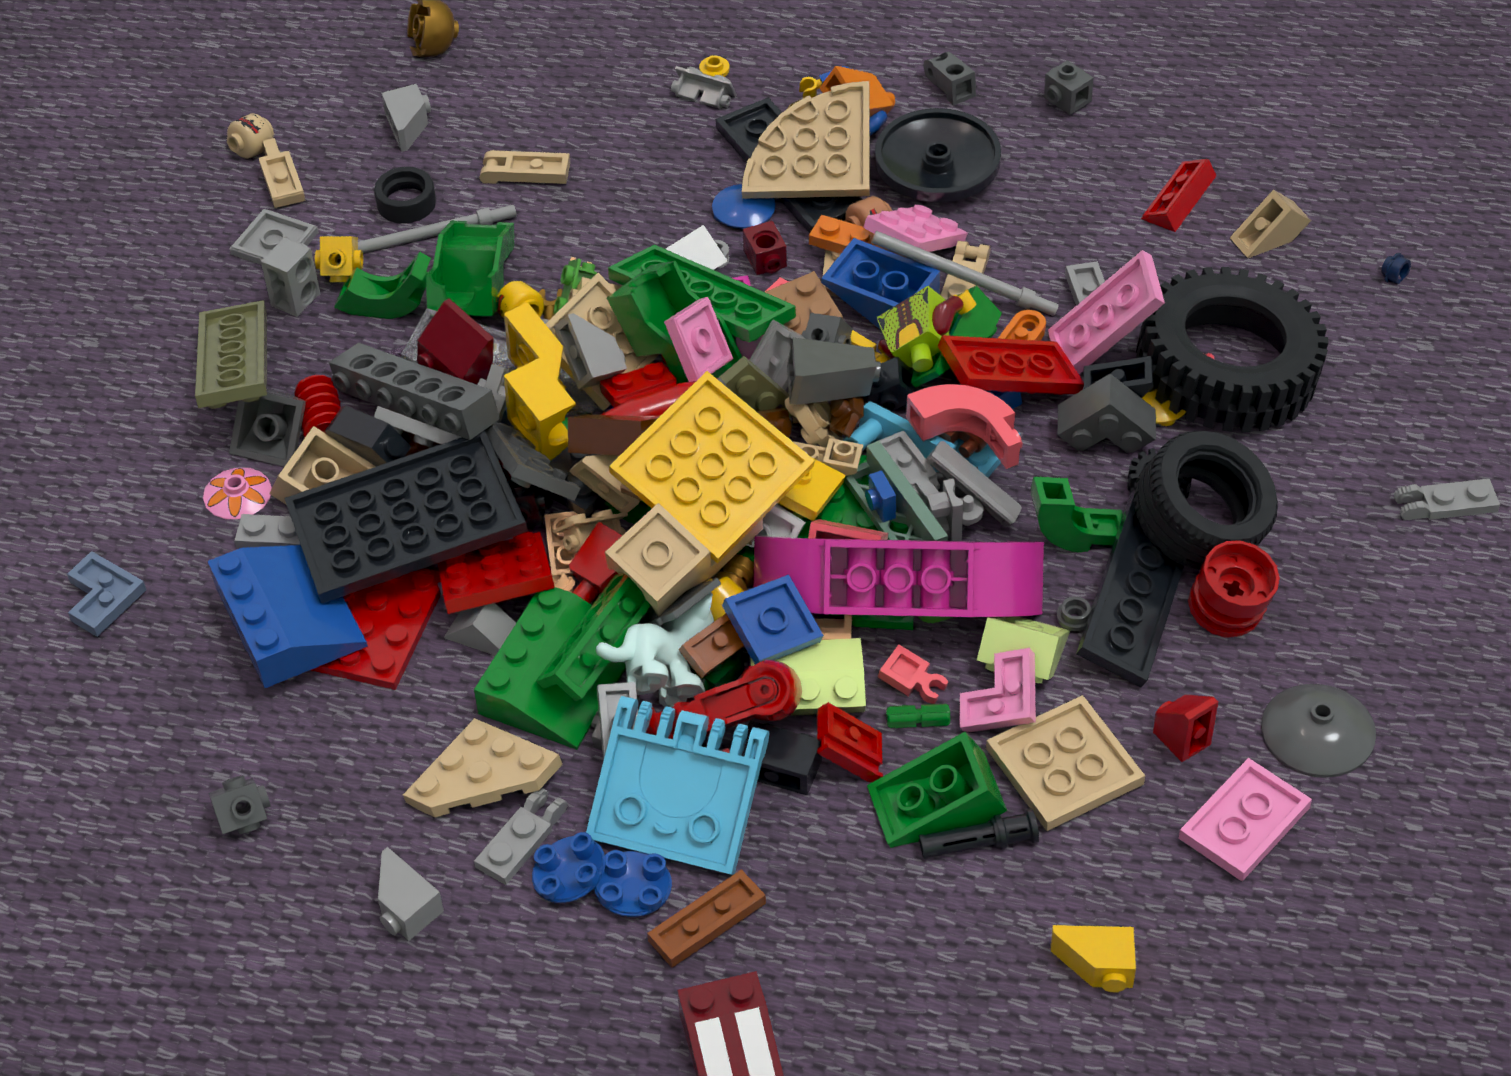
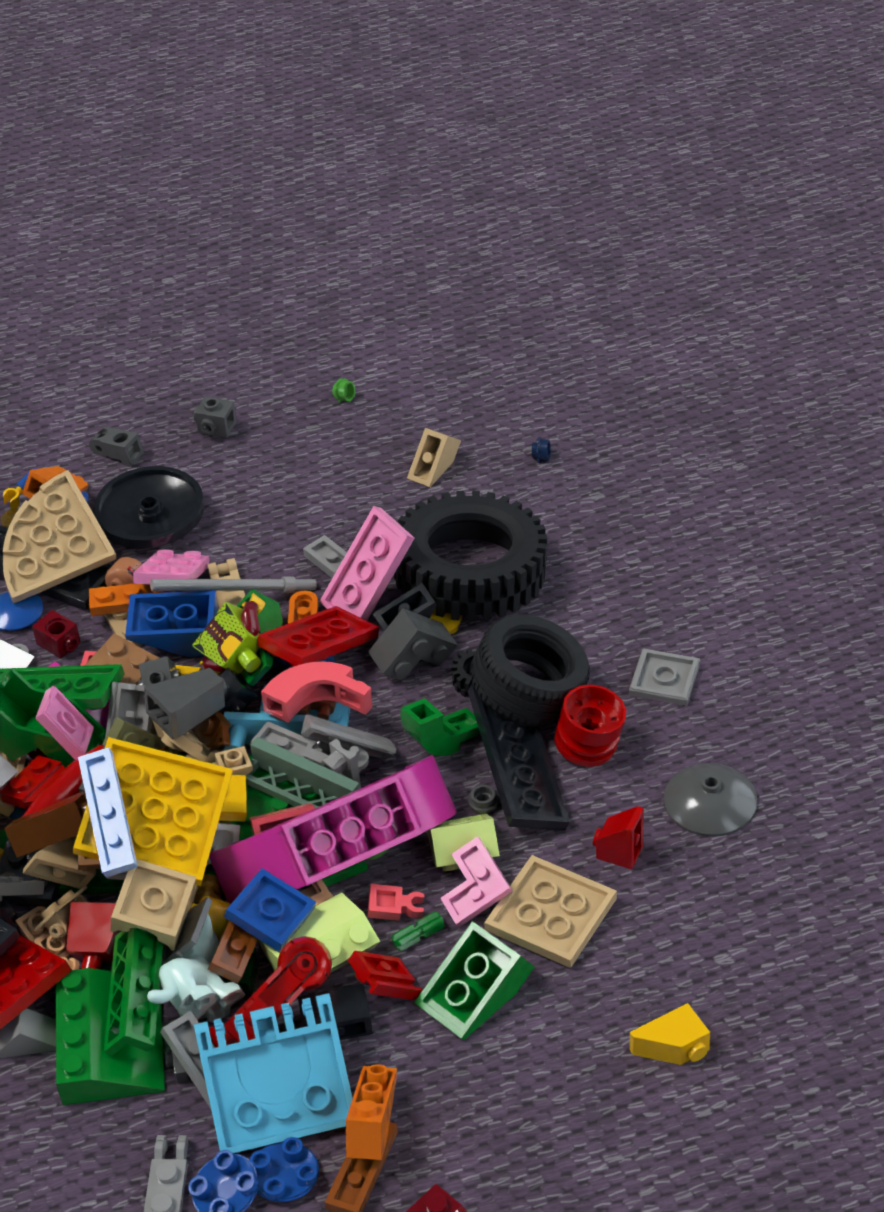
camera: 30 degrees left, 5 degrees down
(480, 769) = (98, 1146): tan plate -> none
(658, 446) = (107, 812): none -> light blue plate
(740, 870) = (370, 1113): none -> orange slope
(881, 496) = (287, 777): blue plate -> none
(996, 832) = (537, 987): black pin -> none
(1184, 195) = (352, 461): red slope -> none
(1224, 111) = (342, 388): none -> bright green plate
(1245, 819) = (706, 887): bright pink plate -> none
(1360, 576) = (664, 677): none -> light grey tile
(1447, 500) = (687, 595): light grey hinge -> none

